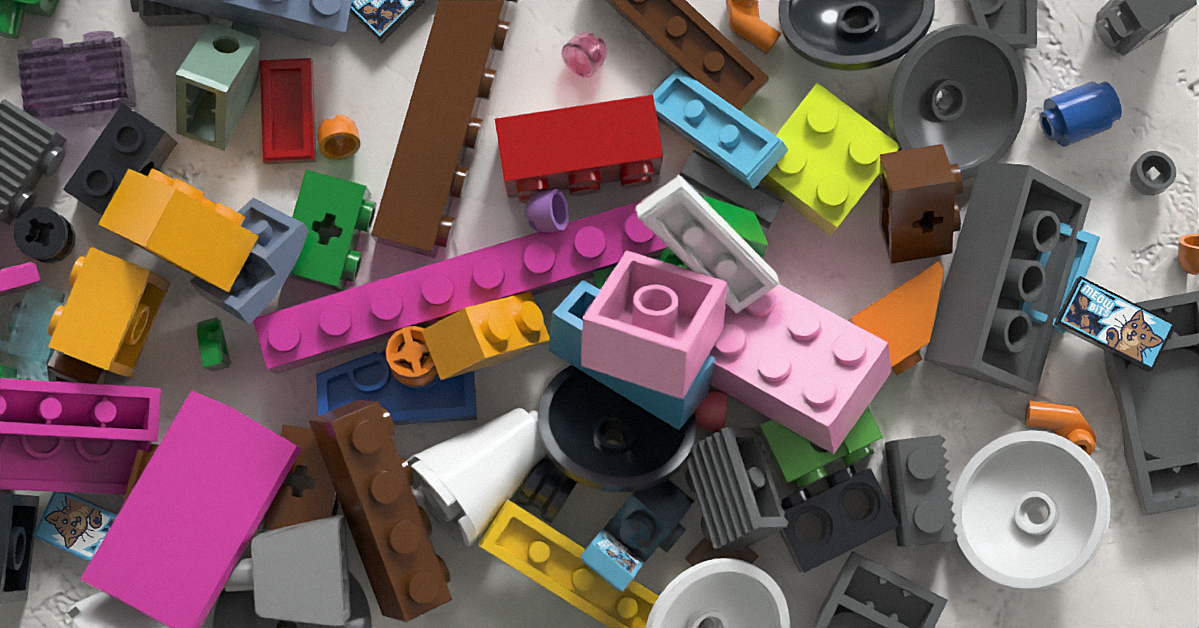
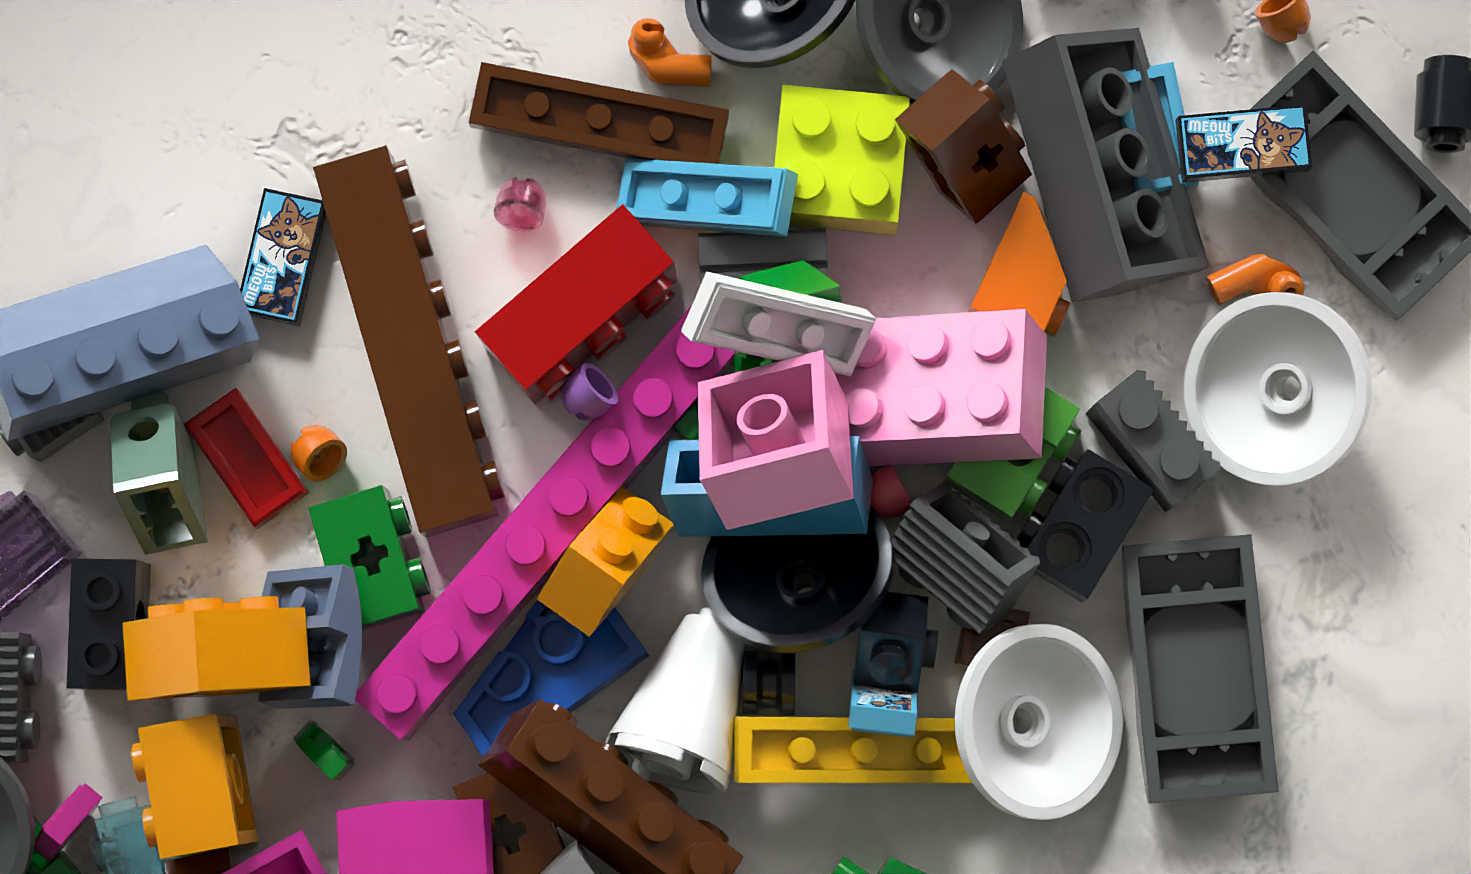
camera: 25 degrees left, 0 degrees up
(52, 244) = (86, 753): black wheel -> none
(410, 346) = (534, 622): orange wheel -> none

